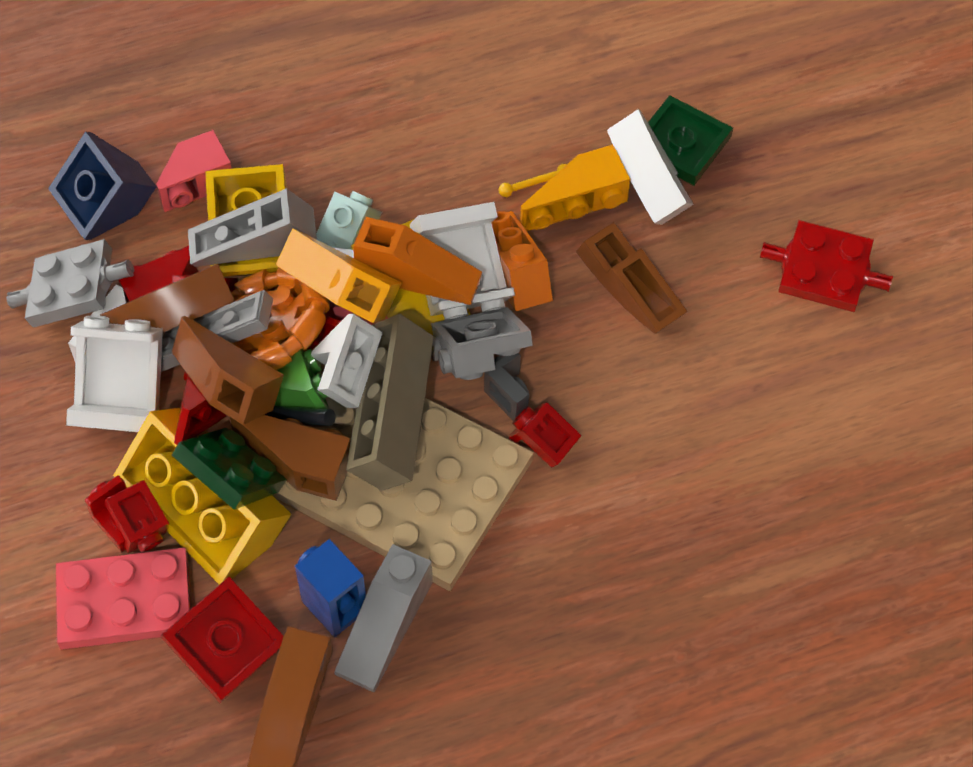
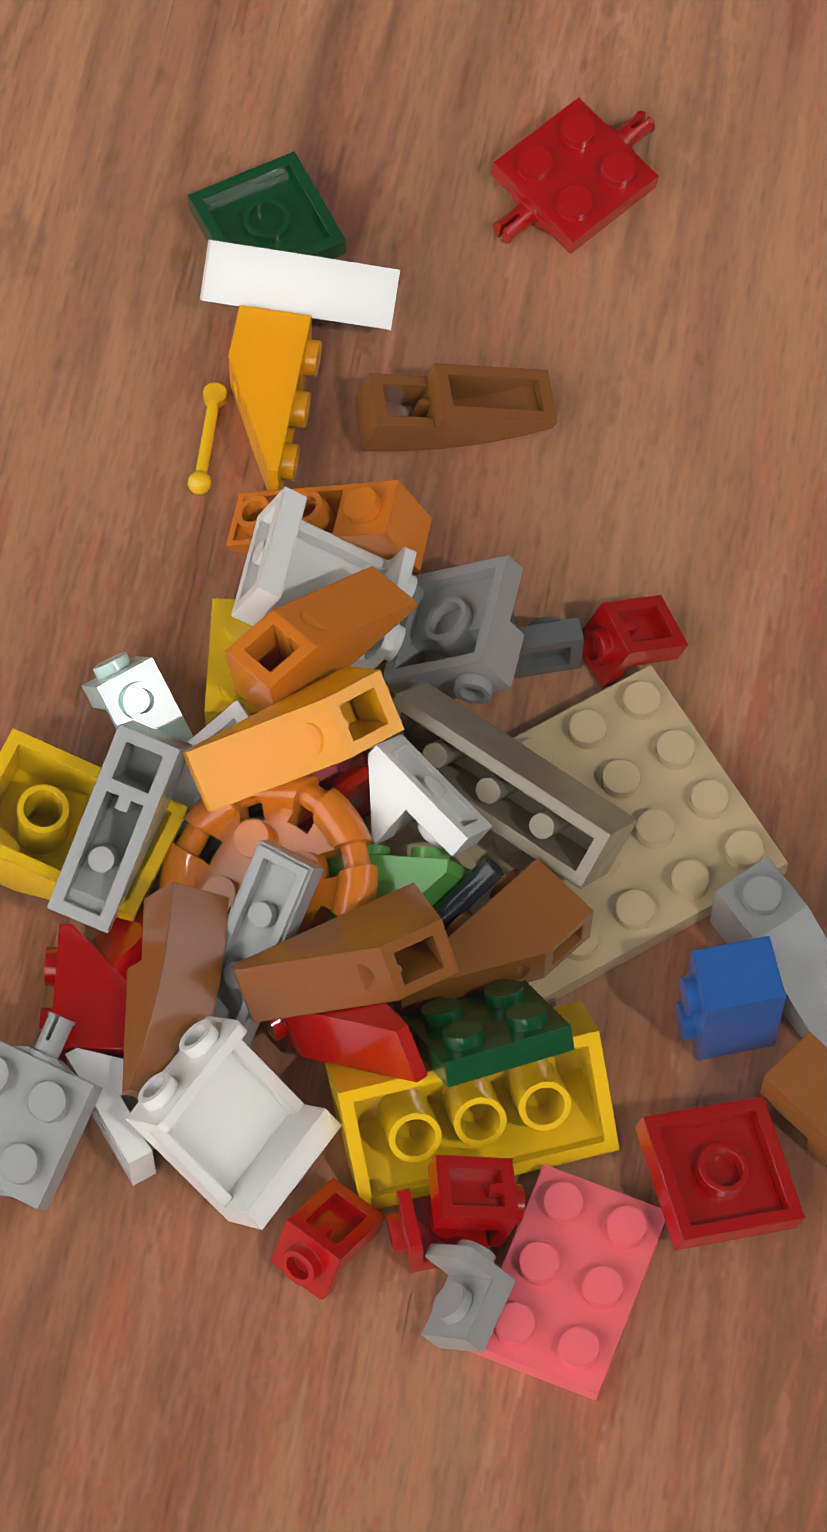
camera: 60 degrees left, 5 degrees up
(75, 549) = (470, 1298): none -> light grey bracket
(84, 460) = (325, 1237): none -> red bracket

